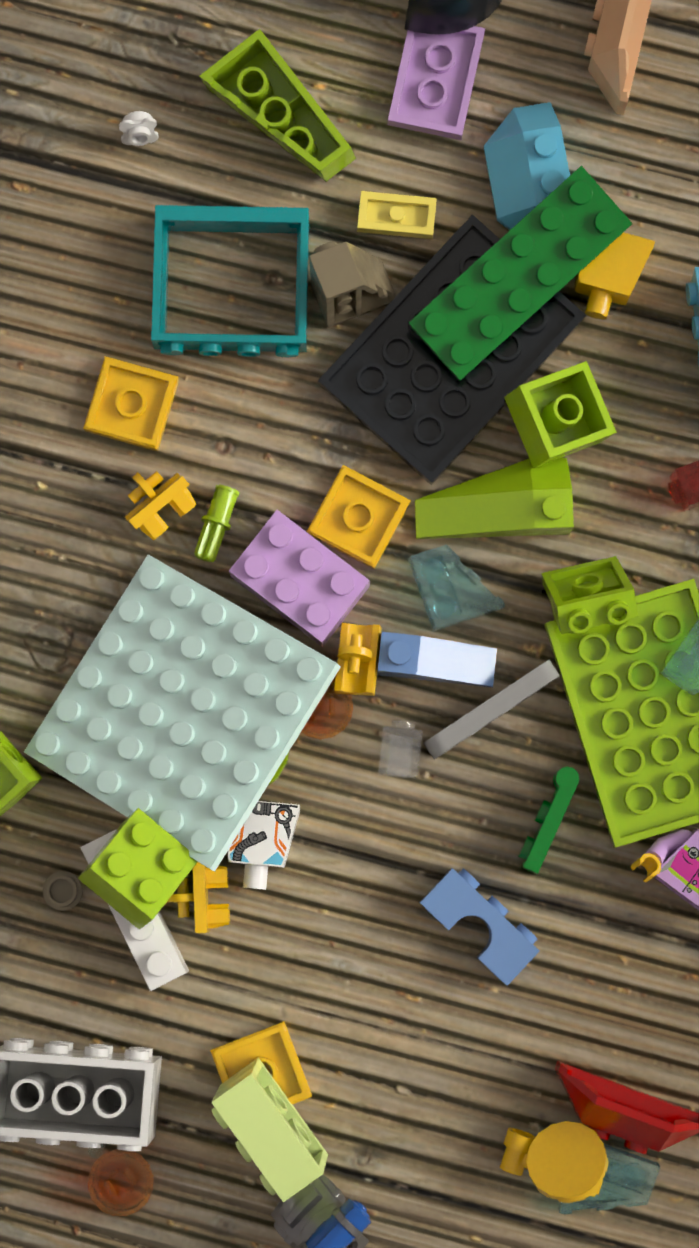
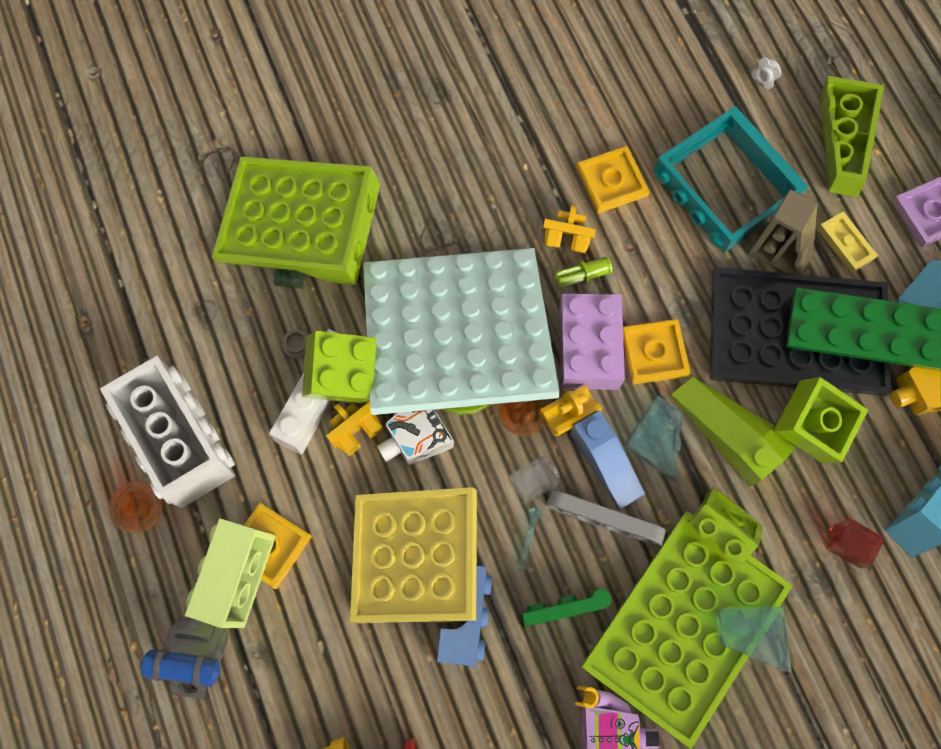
camera: 50 degrees right, 10 degrees down
(387, 932) = (415, 556): none -> light yellow plate
(433, 777) = (534, 515): none -> clear light blue hinge

